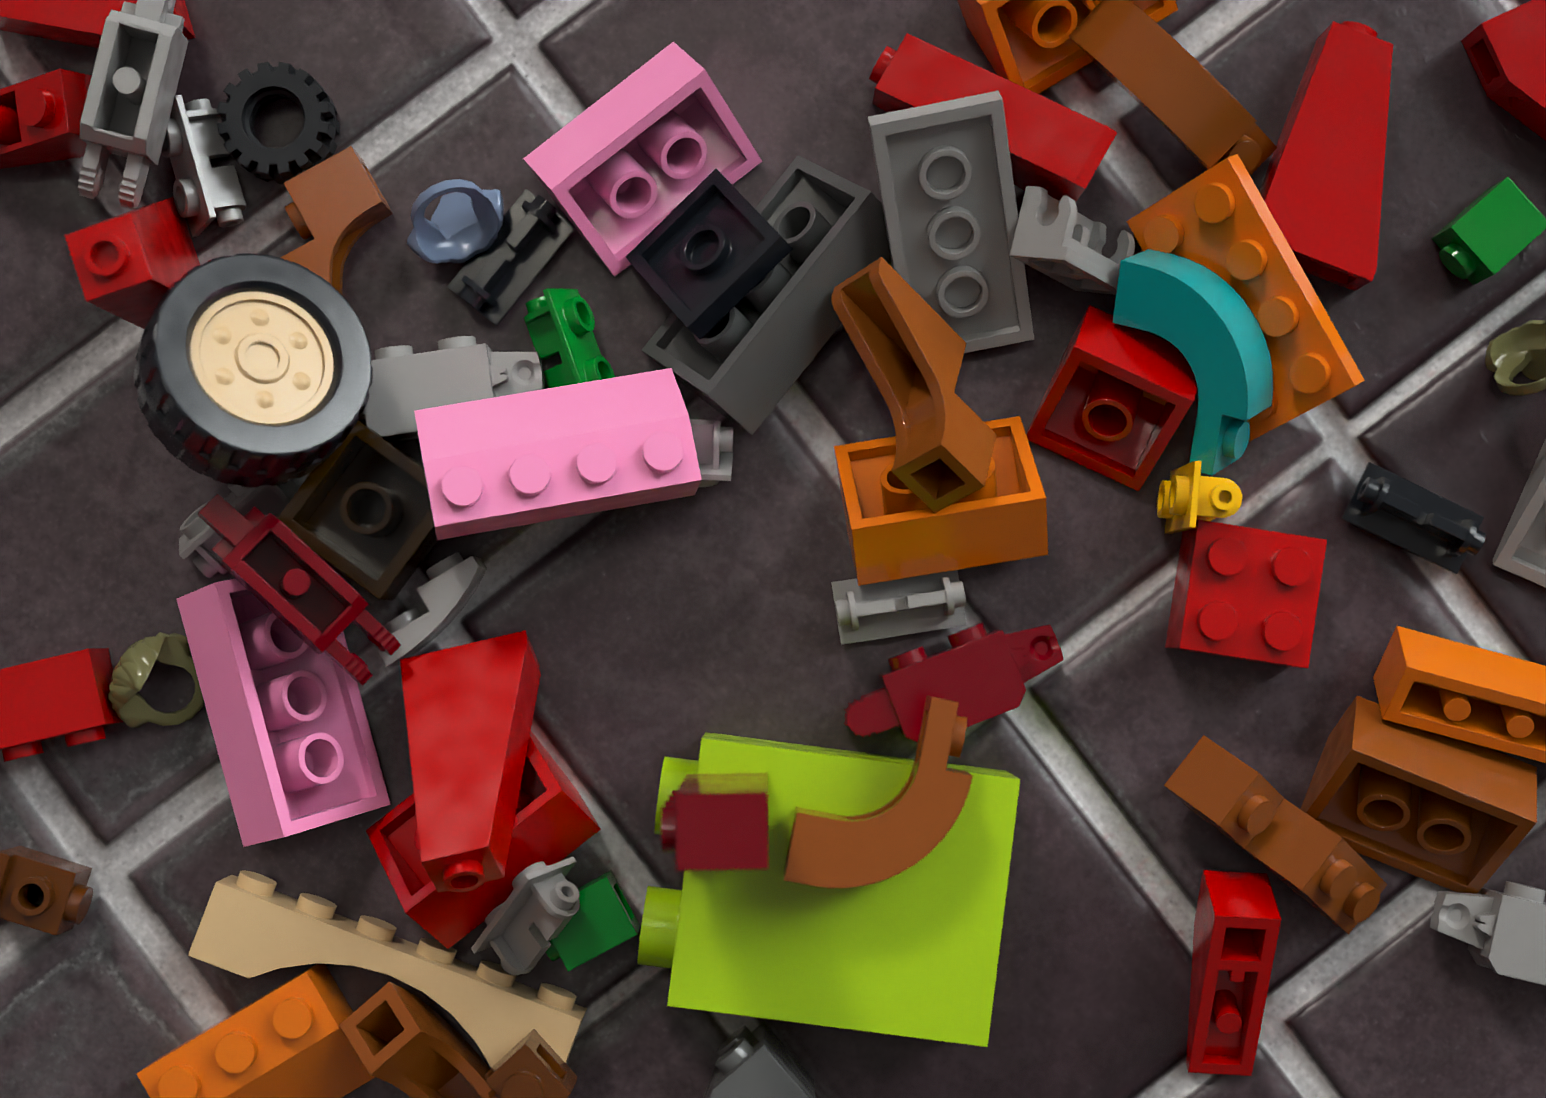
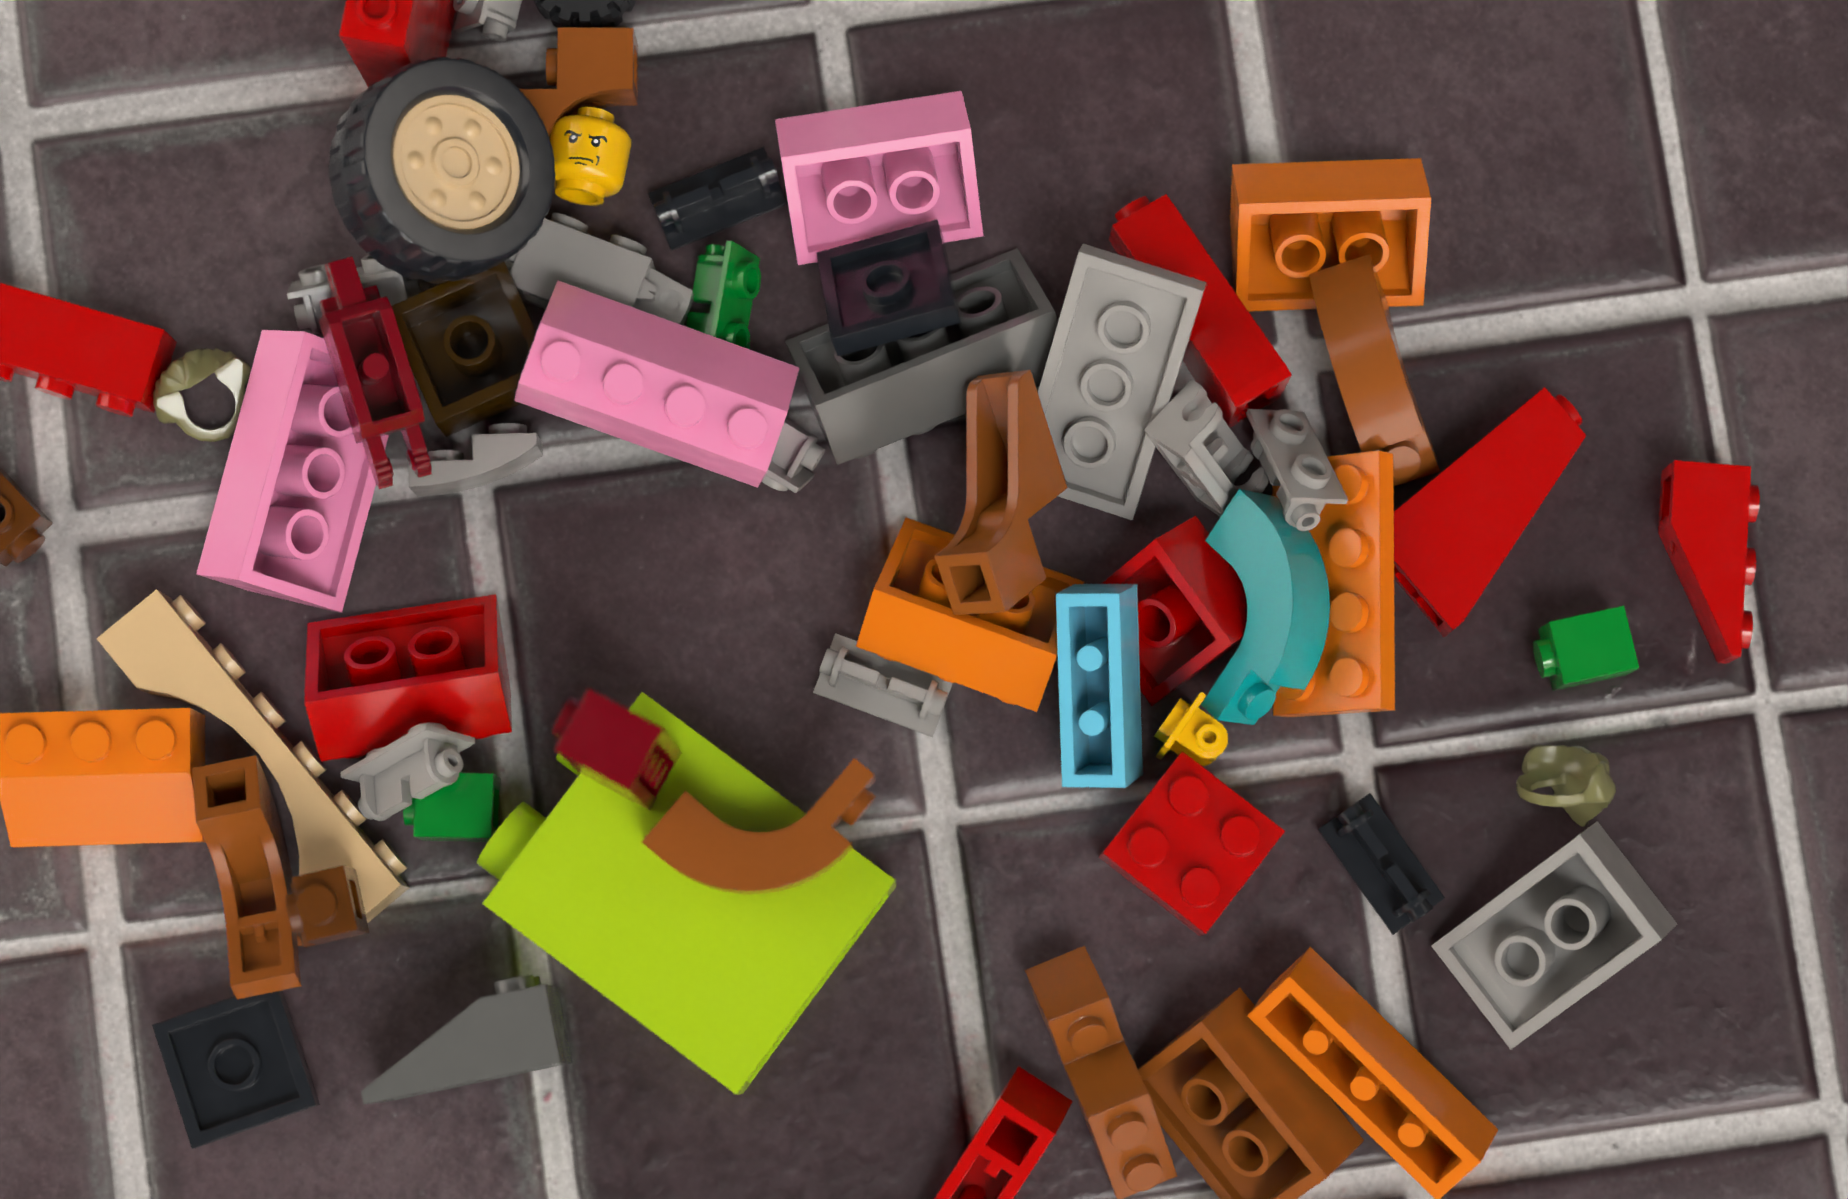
camera: 30 degrees right, 5 degrees down
(377, 282) = (589, 156): none -> yellow head
(460, 225) = (688, 148): sand blue piece -> none
(468, 751) = (437, 596): red slope -> none
(978, 671) = (913, 784): dark red hinge -> none
(1092, 502) = (1099, 685): none -> medium azure brick
(1147, 203) = (1296, 464): none -> light grey hinge

